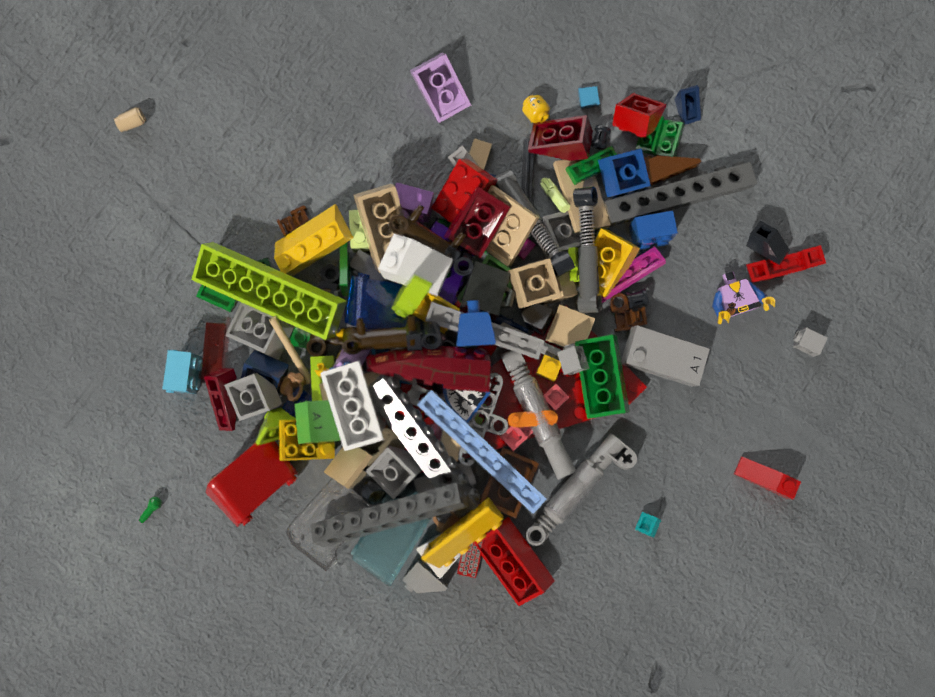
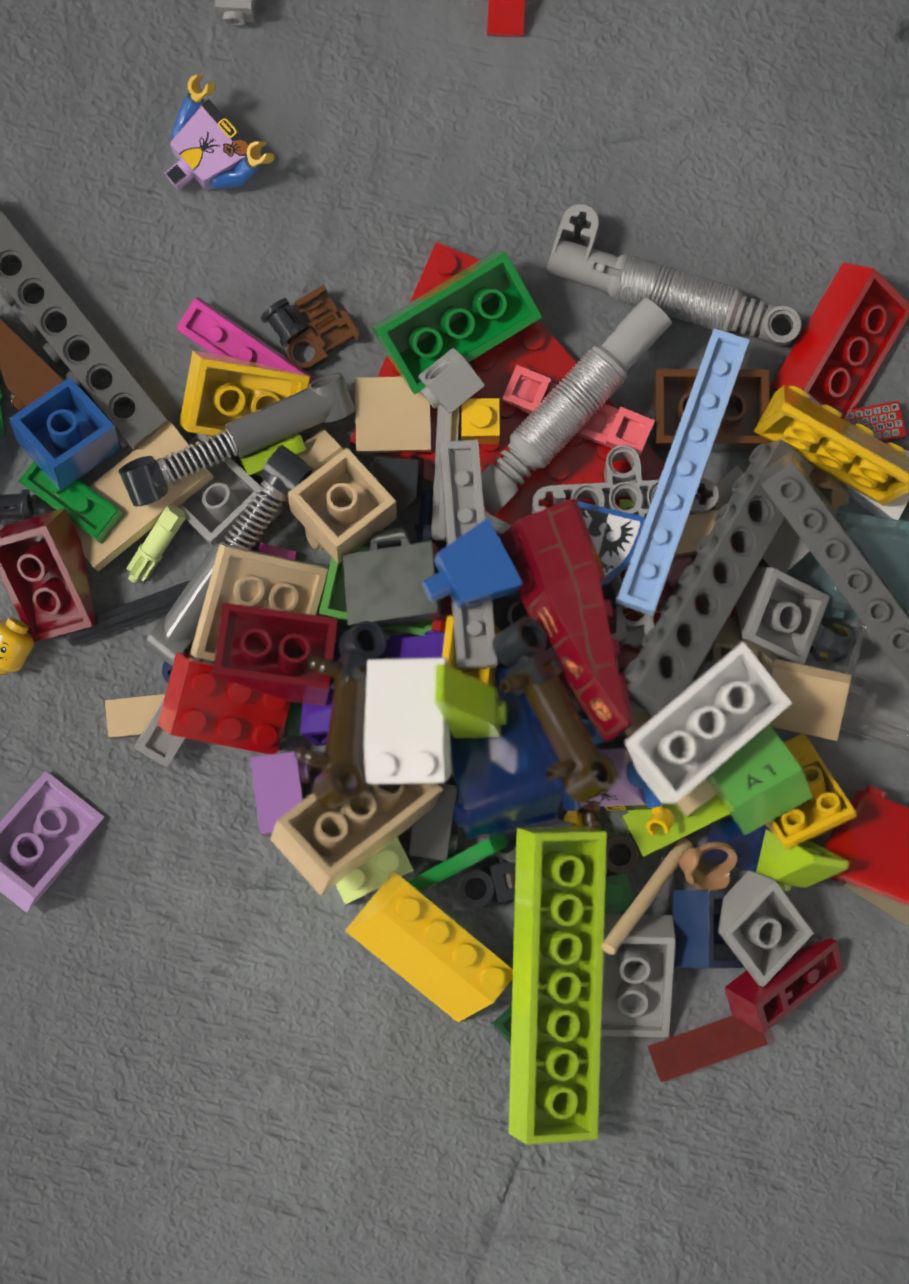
camera: 110 degrees left, 0 degrees up
(182, 372) = (772, 1076): medium azure brick -> none
(216, 298) = (610, 1084): green tile -> none
(295, 221) = (400, 996): reddish brown piece -> none
(527, 419) = (590, 414): orange piece -> none
(648, 524) = (676, 144): teal plate -> none
(653, 229) = (145, 334): blue brick -> none
(665, 356) = (370, 230): light grey brick -> none
(768, 242) = (88, 130): black slope -> none
(791, 264) = (112, 87): red slope -> none

